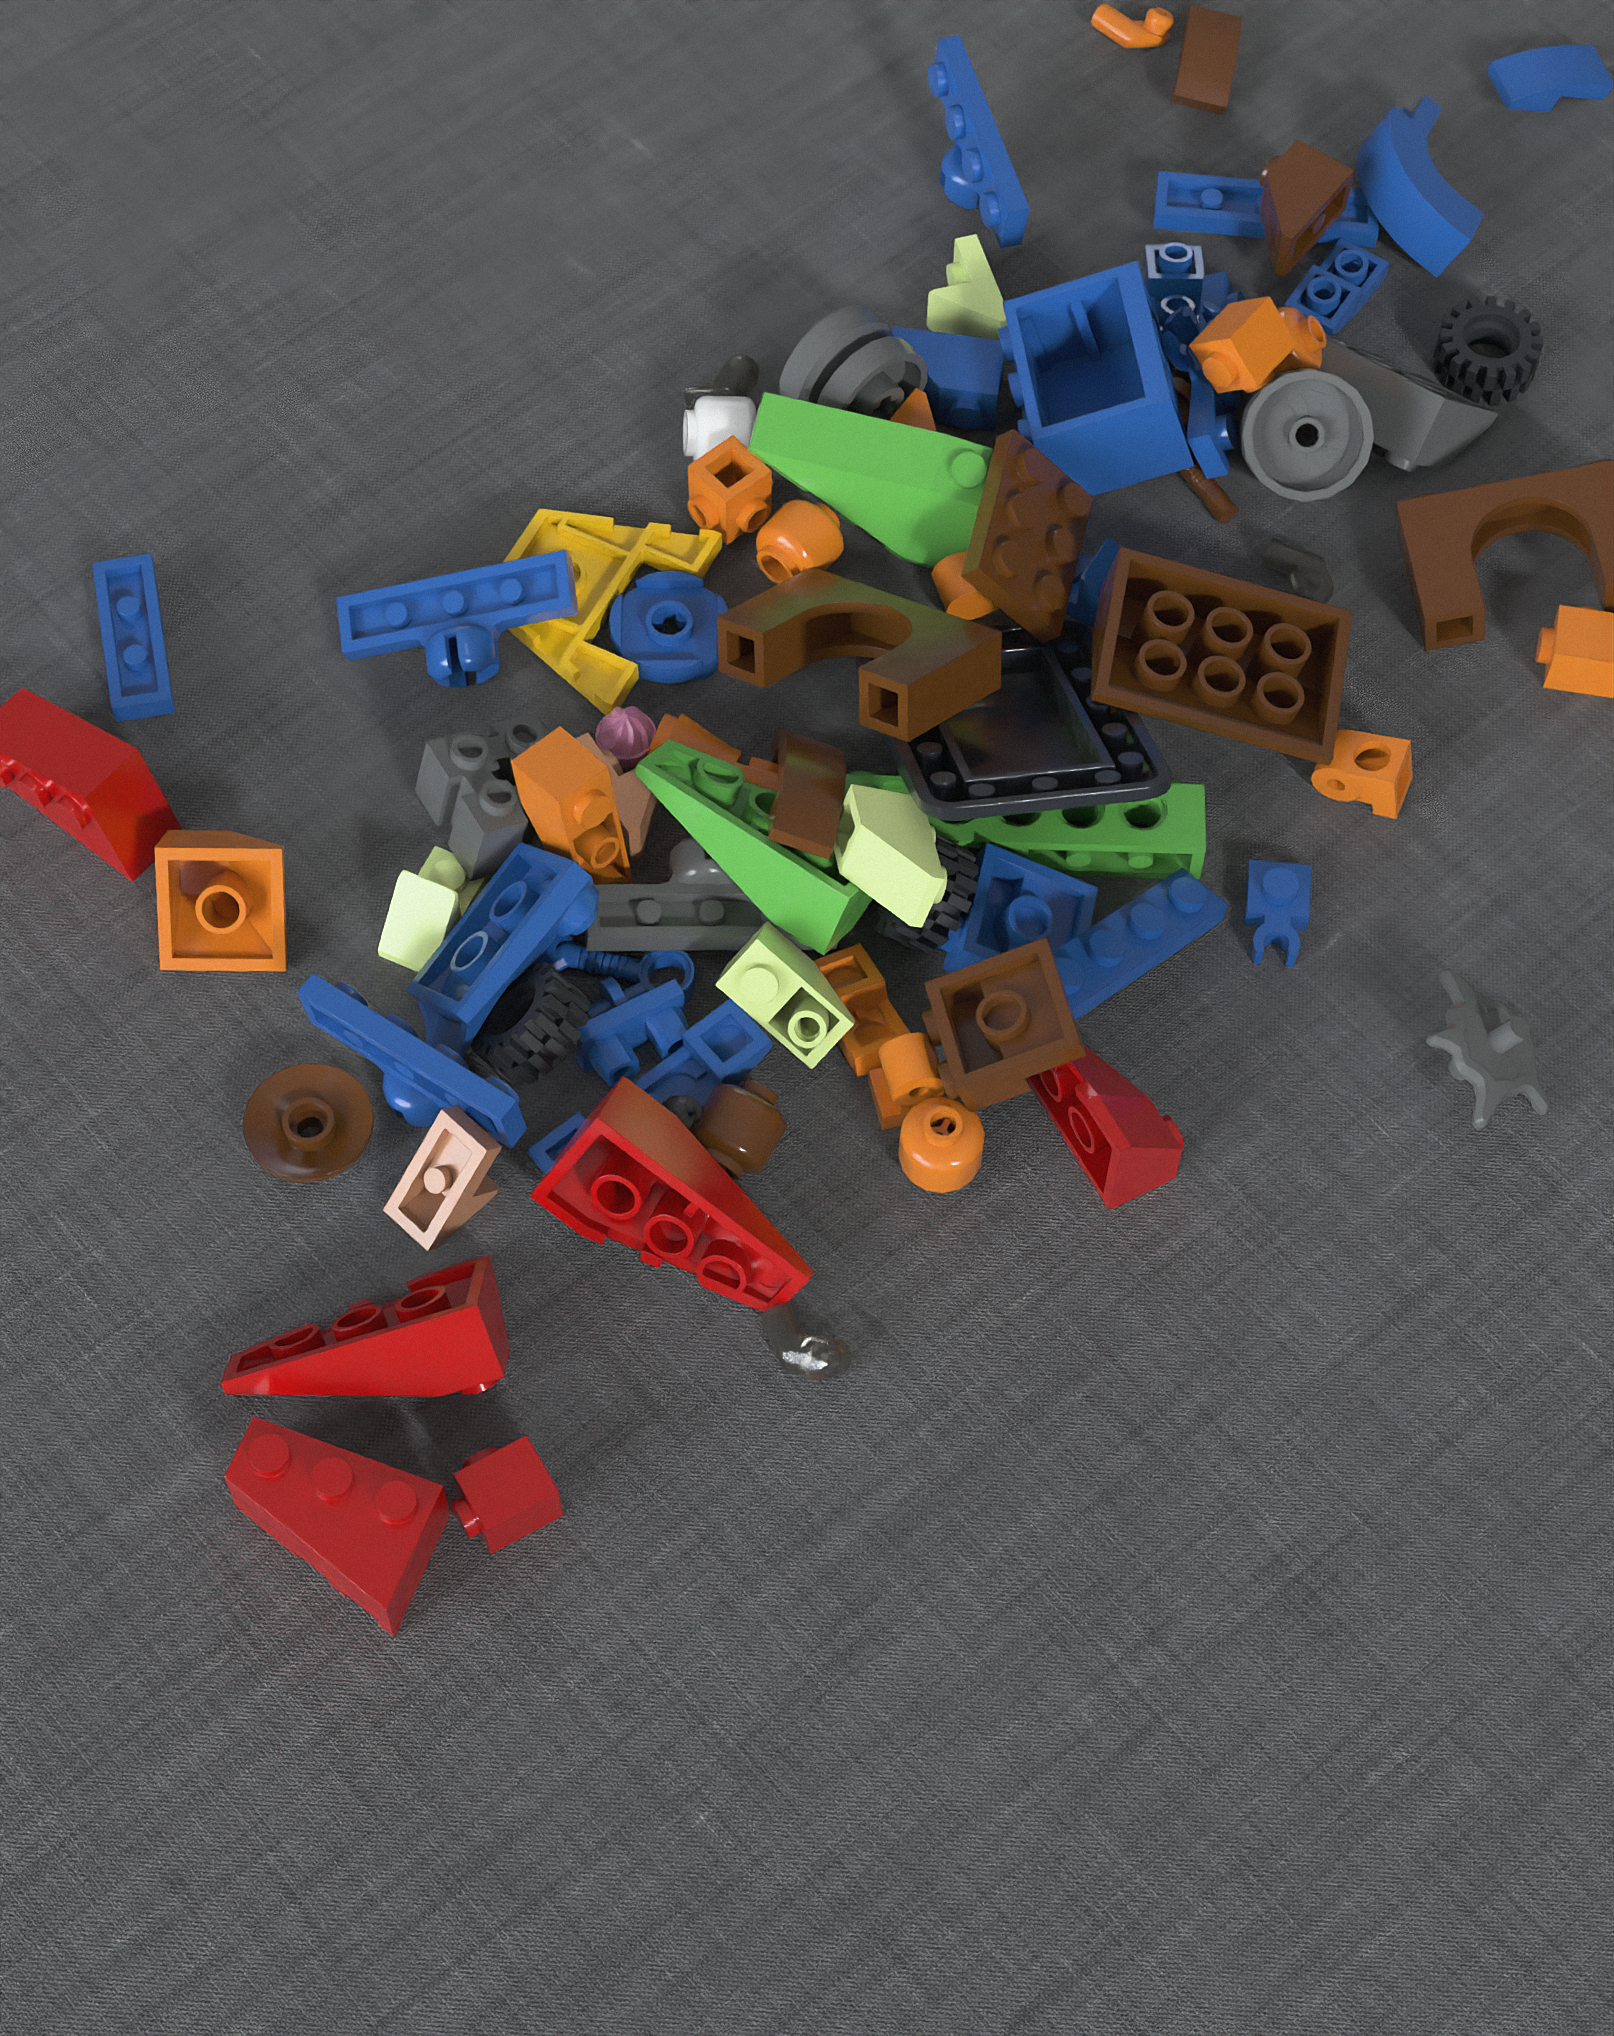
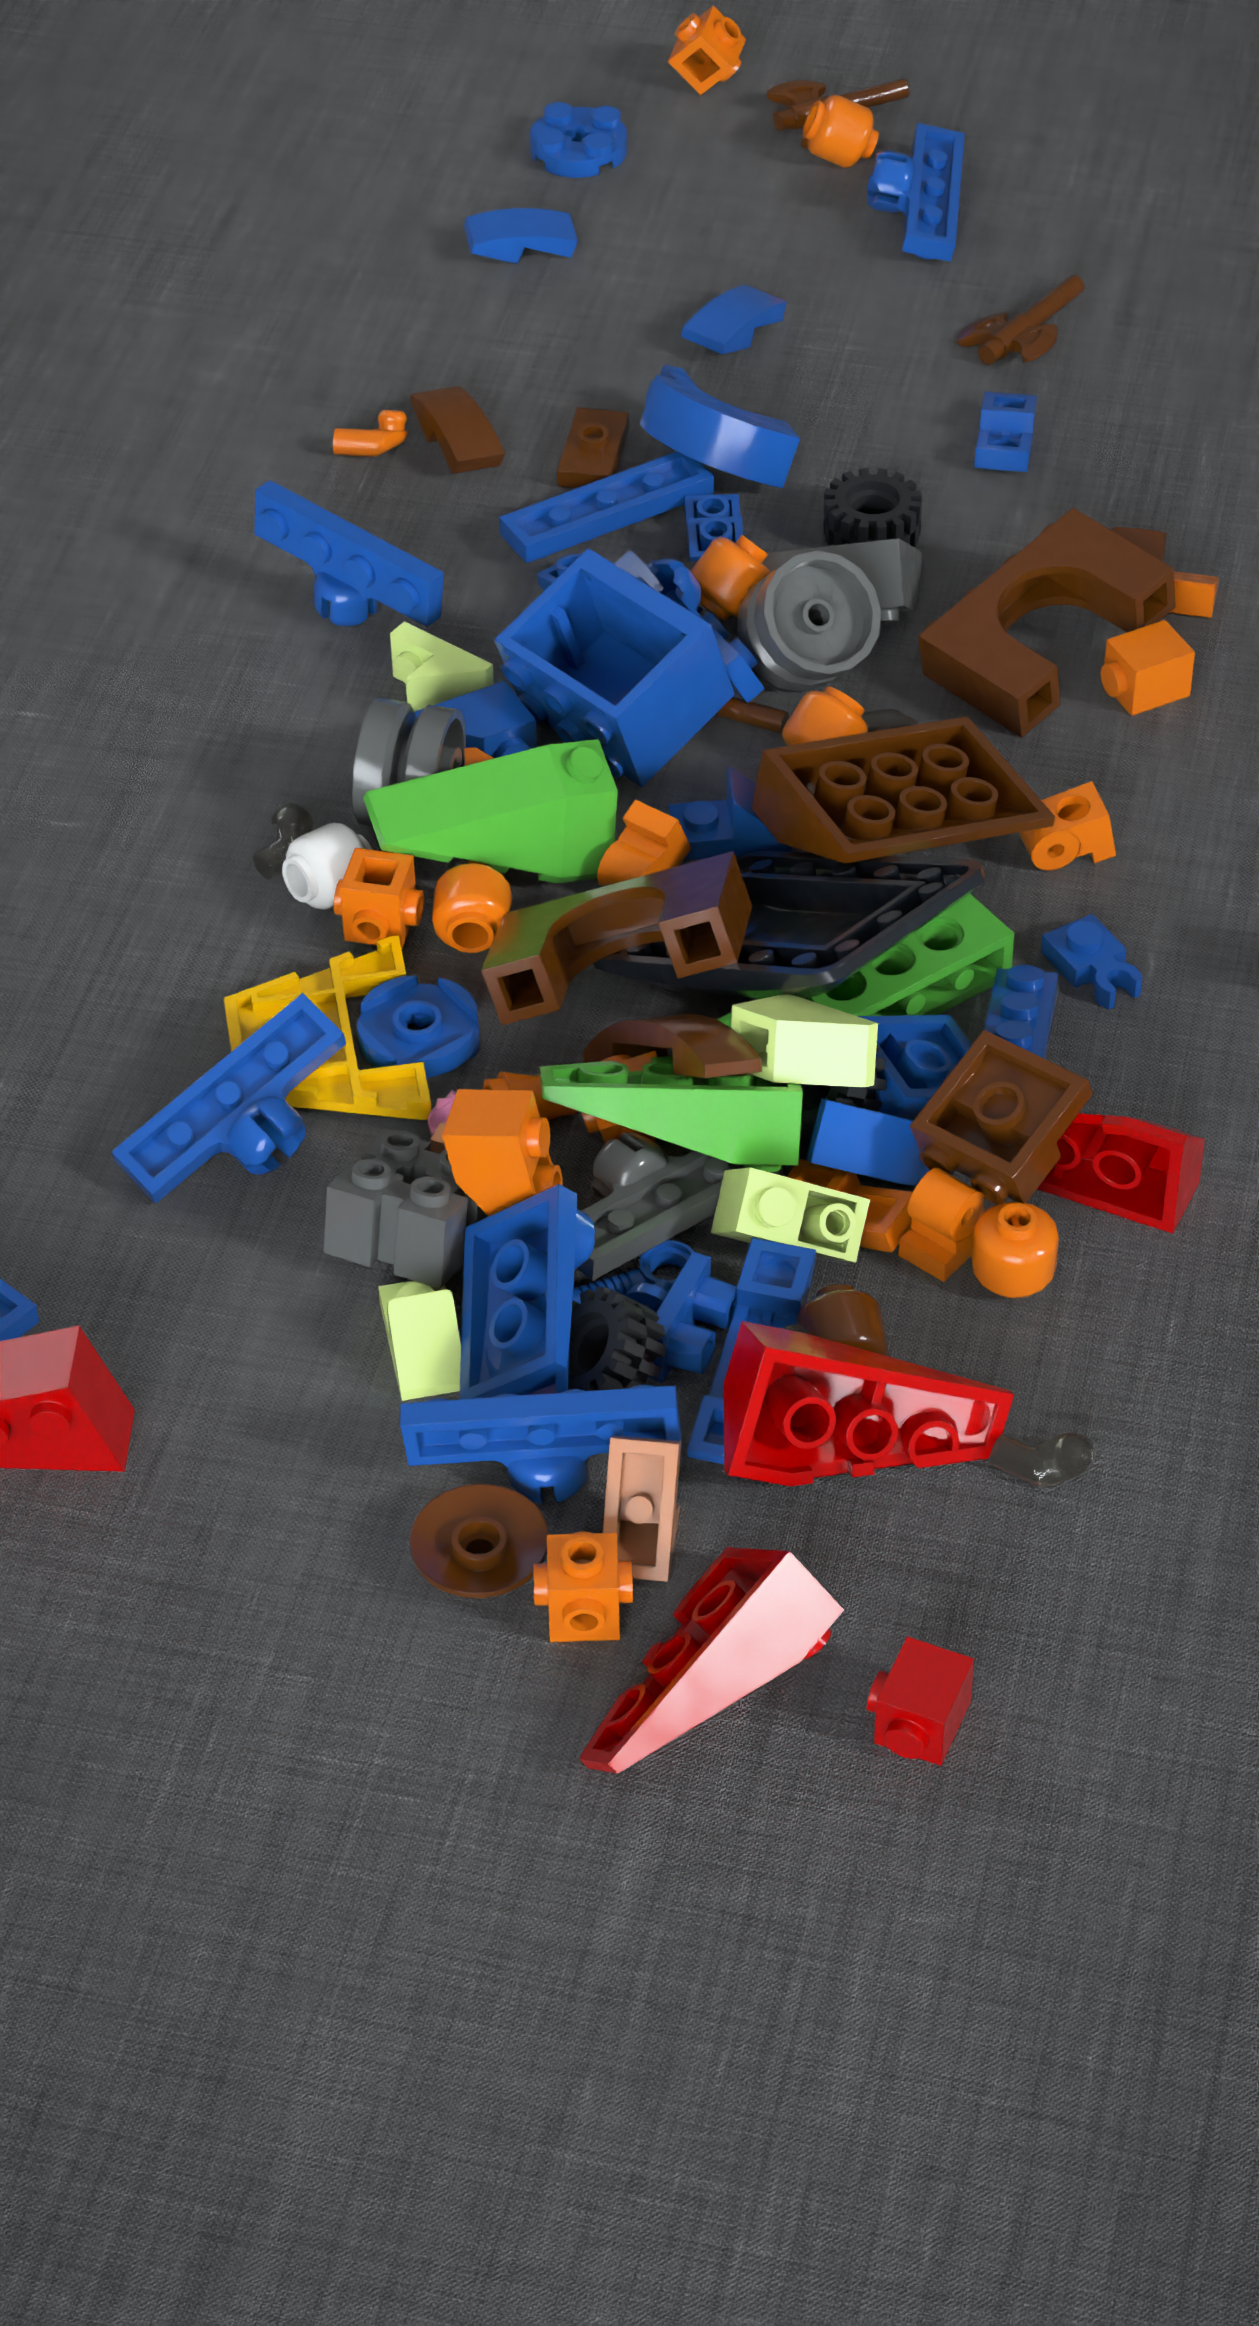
camera: 35 degrees left, 15 degrees down
(220, 902) = (237, 1425): orange slope -> none
(342, 1514) = (802, 1798): red wedge -> none
(344, 1215) = (583, 1586): none -> orange brick
(896, 964) = (866, 1143): none -> blue slope
(1027, 536) = (670, 789): reddish brown plate -> none
(1240, 544) = (824, 717): none -> orange head
(1243, 345) = (720, 571): orange brick -> none
(1301, 201) = (639, 476): reddish brown slope -> none
(1325, 126) = (592, 447): none -> reddish brown plate

